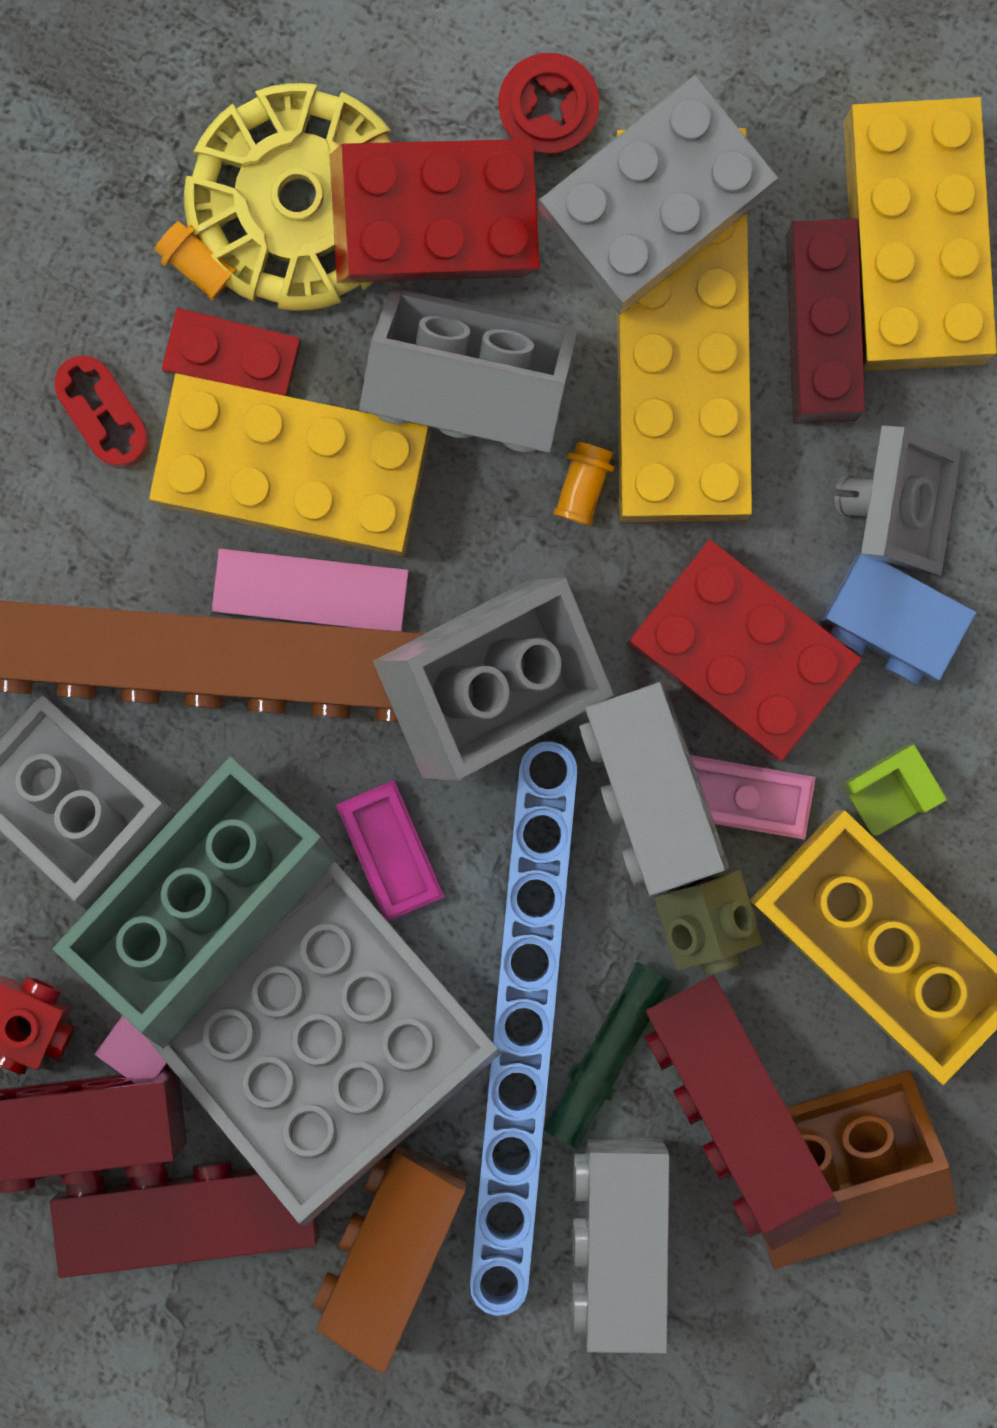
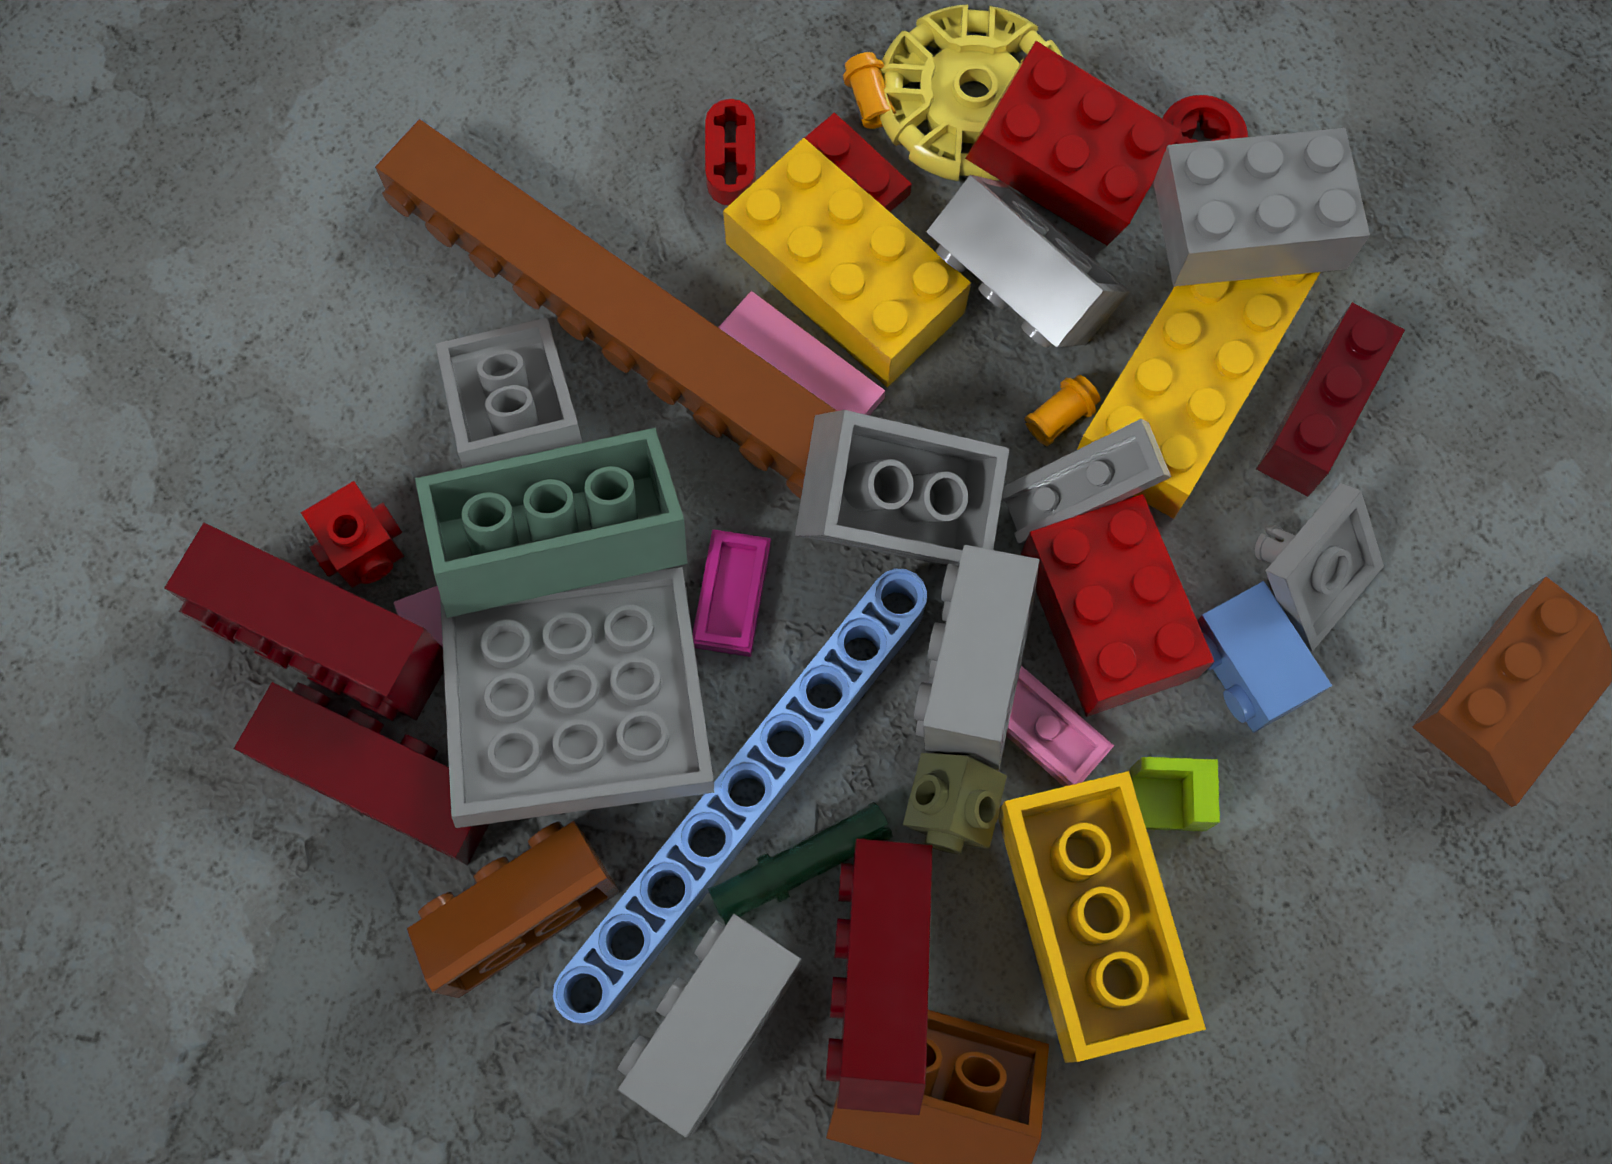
camera: 30 degrees right, 15 degrees down
(651, 559) = (1087, 479): none -> light grey hinge
(921, 233) = (1446, 382): yellow brick -> none

